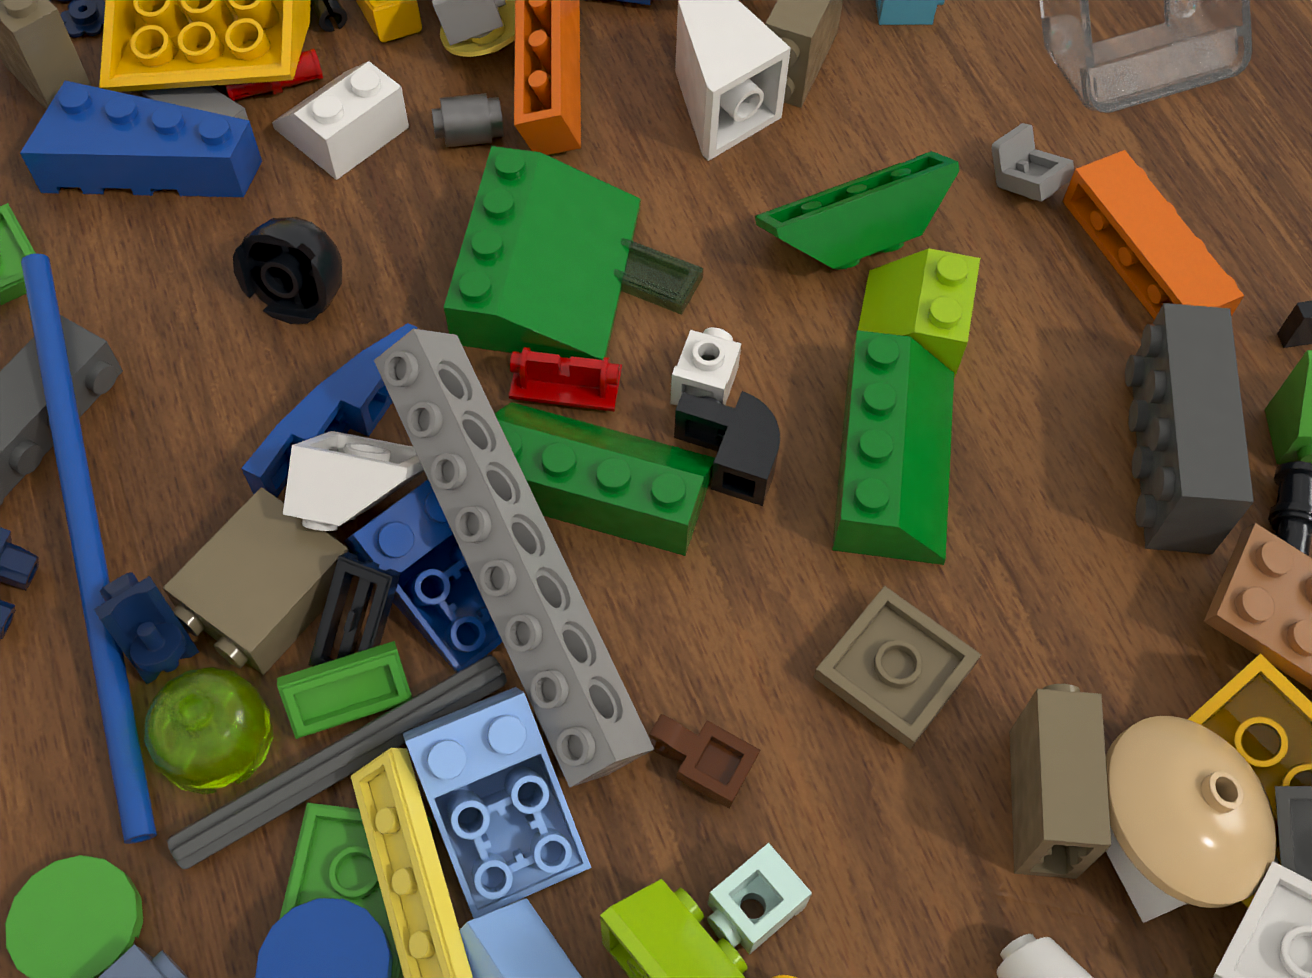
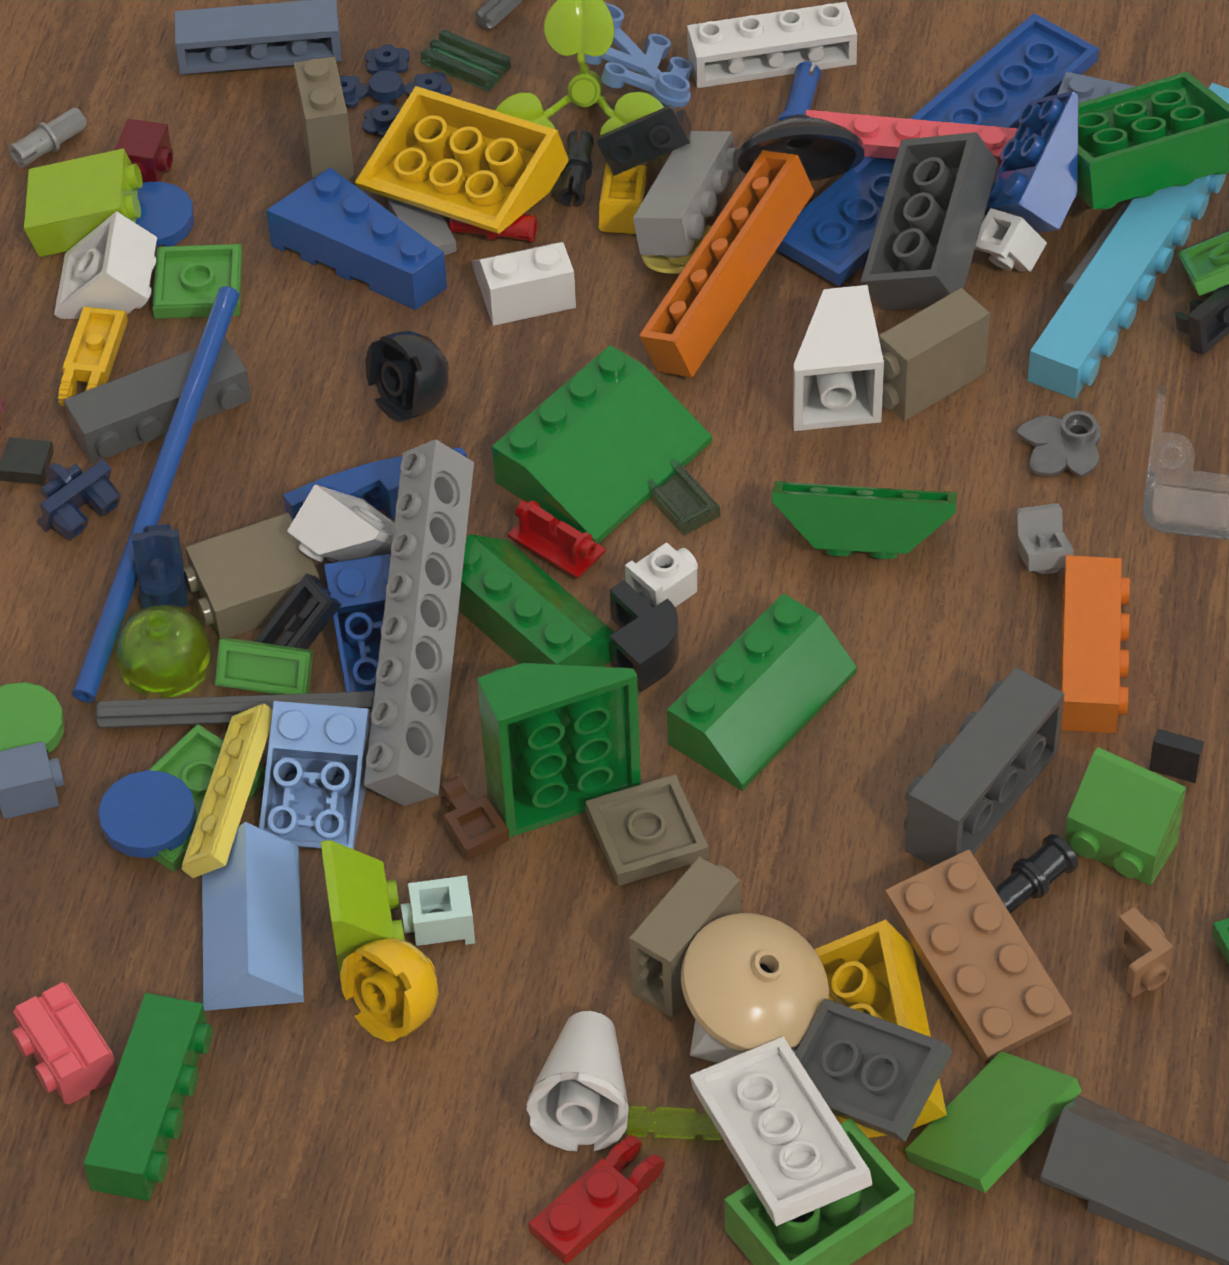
camera: 35 degrees right, 10 degrees down
(468, 120) = (616, 319): flat silver brick -> none
(774, 624) = (557, 739): none -> green slope
(924, 299) = (870, 608): lime slope -> none
(963, 67) = (1062, 443): none -> flat silver plate

